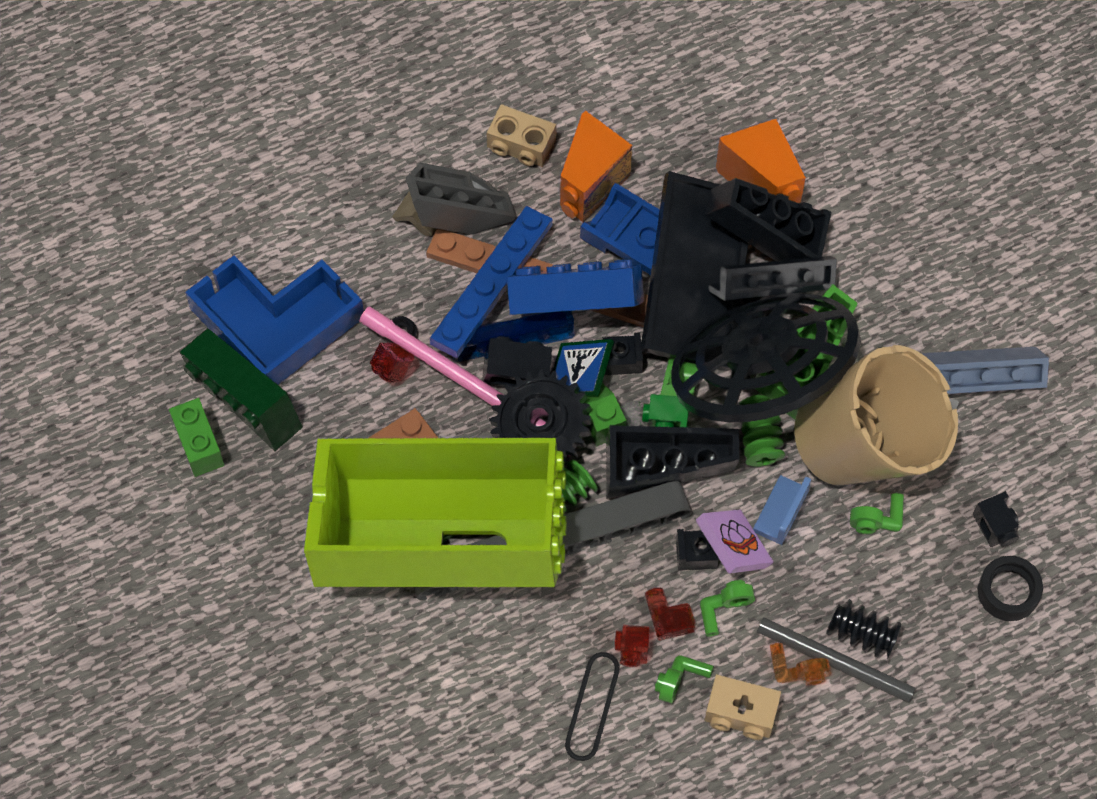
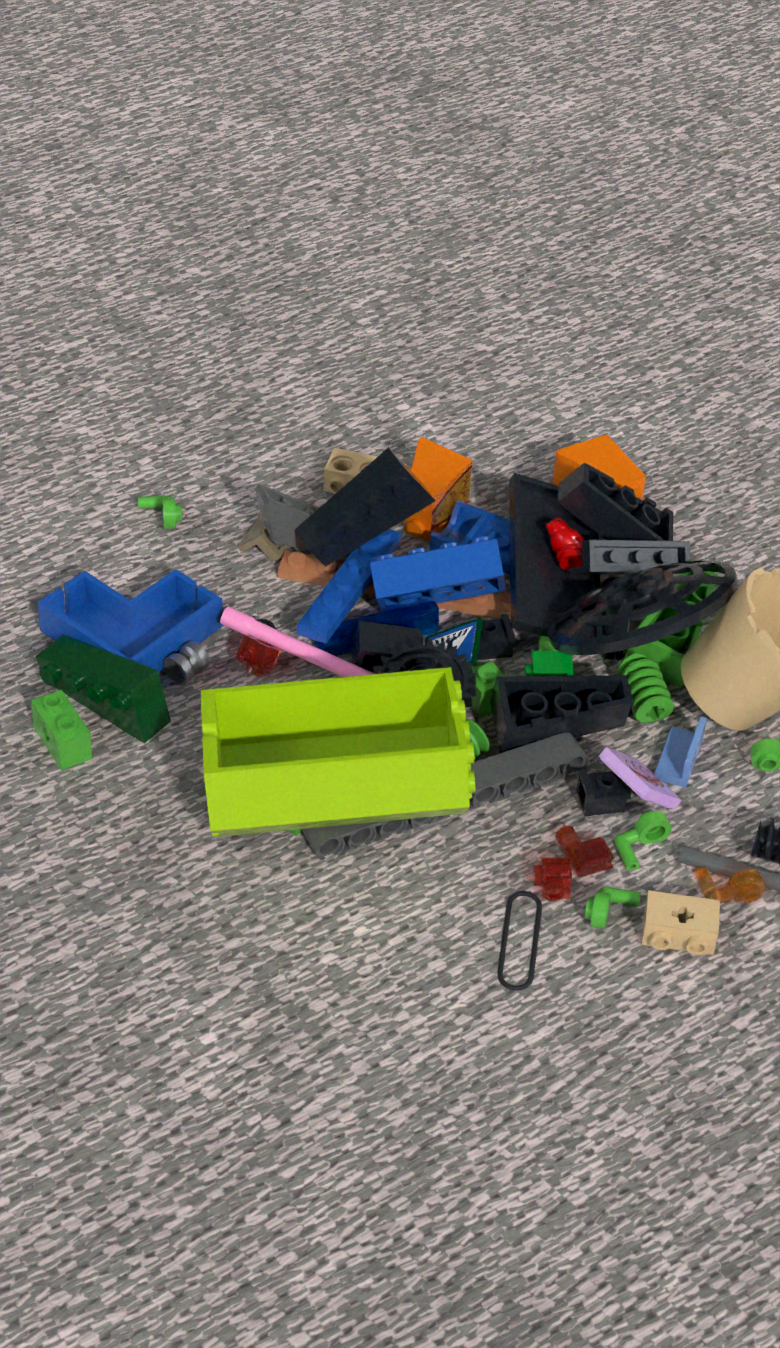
camera: 10 degrees left, 20 degrees down
(323, 363) = (186, 663): none -> flat silver wheel
(329, 172) = (171, 512): none -> bright green plate
(513, 204) = (364, 508): none -> black wedge
(710, 257) = (566, 544): none -> red animal

